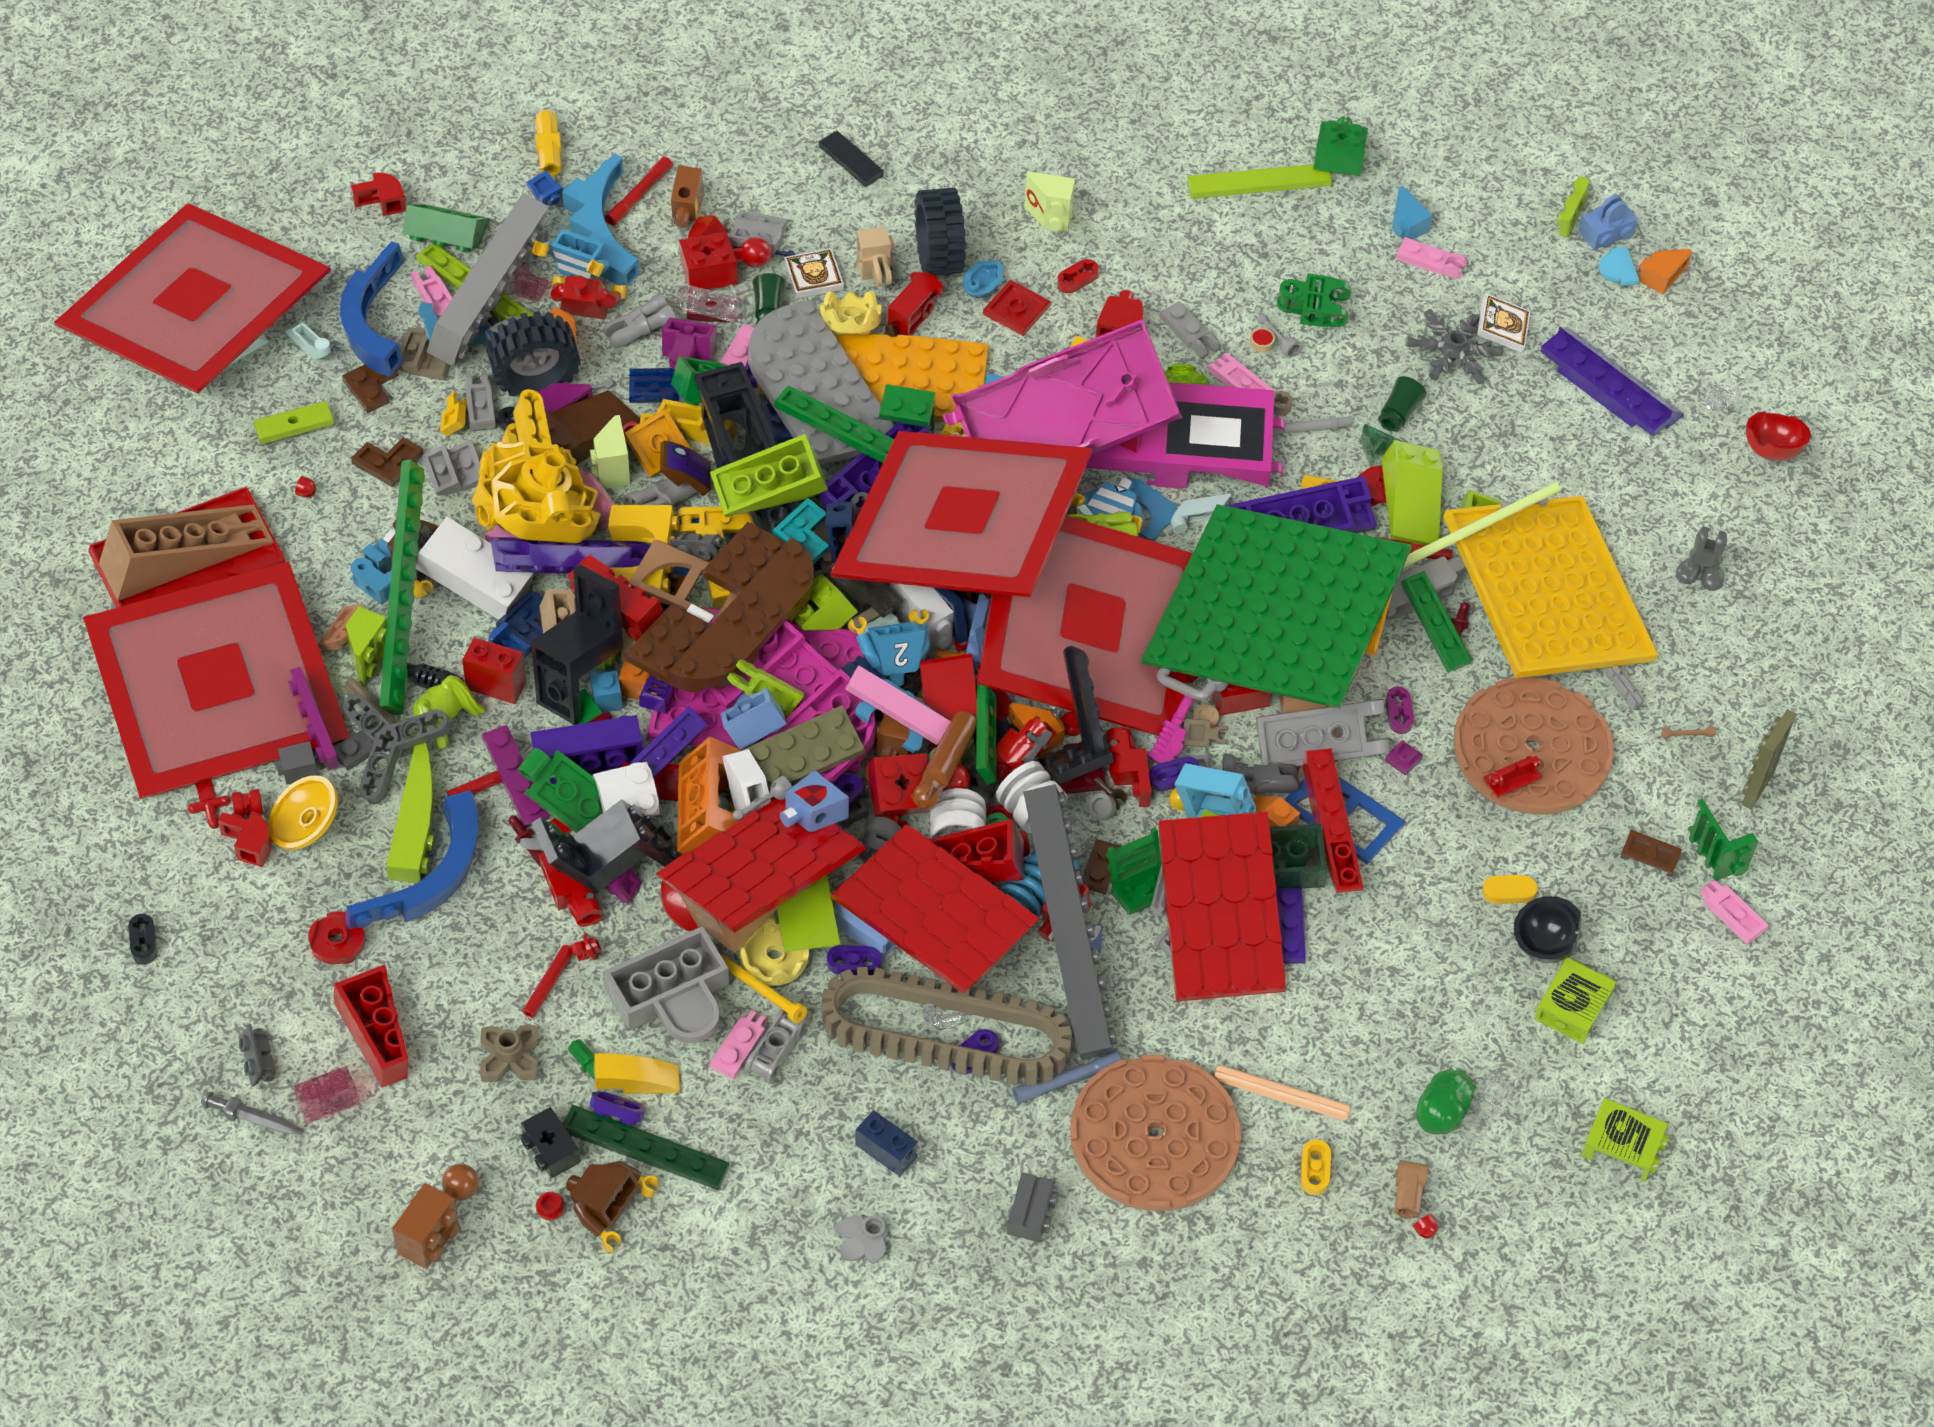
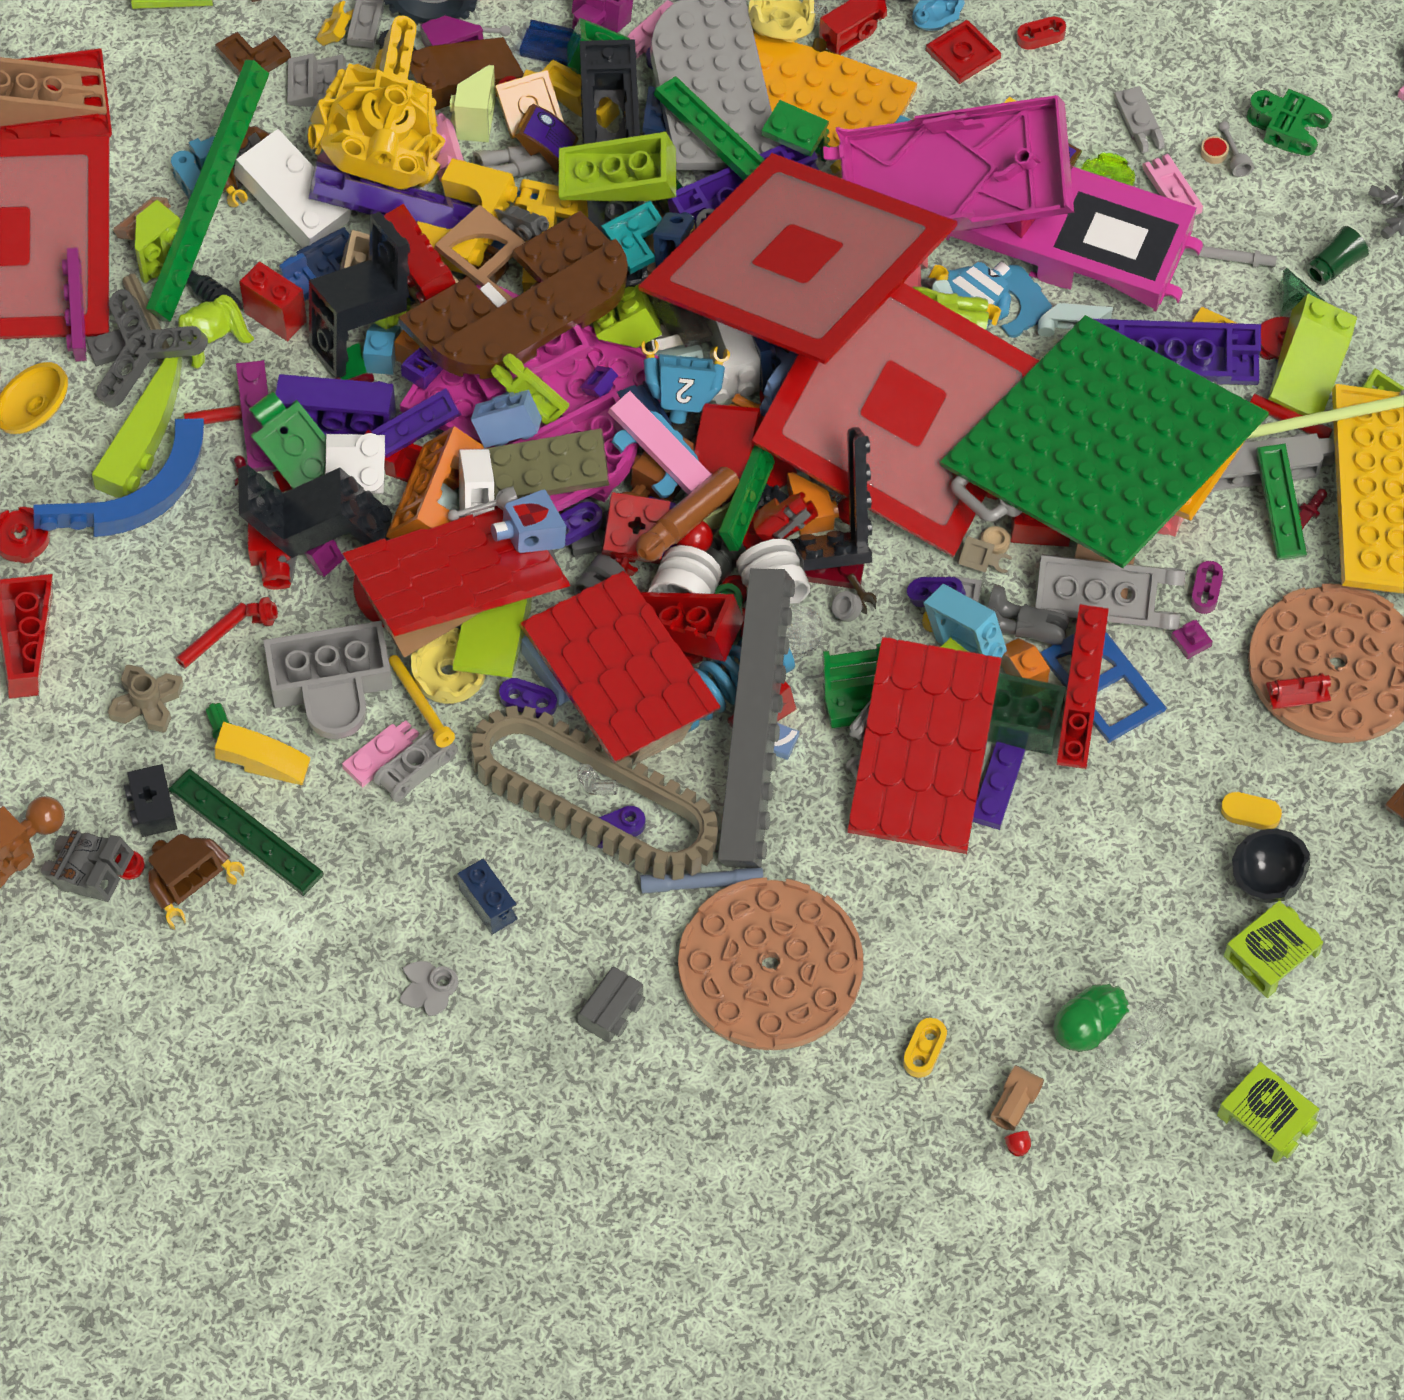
camera: 20 degrees right, 5 degrees up
(296, 762) = (46, 345): dark grey brick -> none
(305, 487) = (159, 63): red hinge -> none
(515, 1215) = (87, 861): none -> dark grey hips
(609, 1104) = (231, 782): dark purple plate -> none
(824, 665) = (599, 381): none -> dark purple plate
(1096, 872) = (811, 676): reddish brown plate -> none
(1119, 312) = (1073, 85): red torso -> none
(1128, 764) = (890, 567): red plate -> none
(1172, 736) = (947, 551): dark pink piece -> none
(1282, 1092) = (921, 959): light nougat axle -> none
(1284, 398) = (1214, 219): dark tan bush -> none

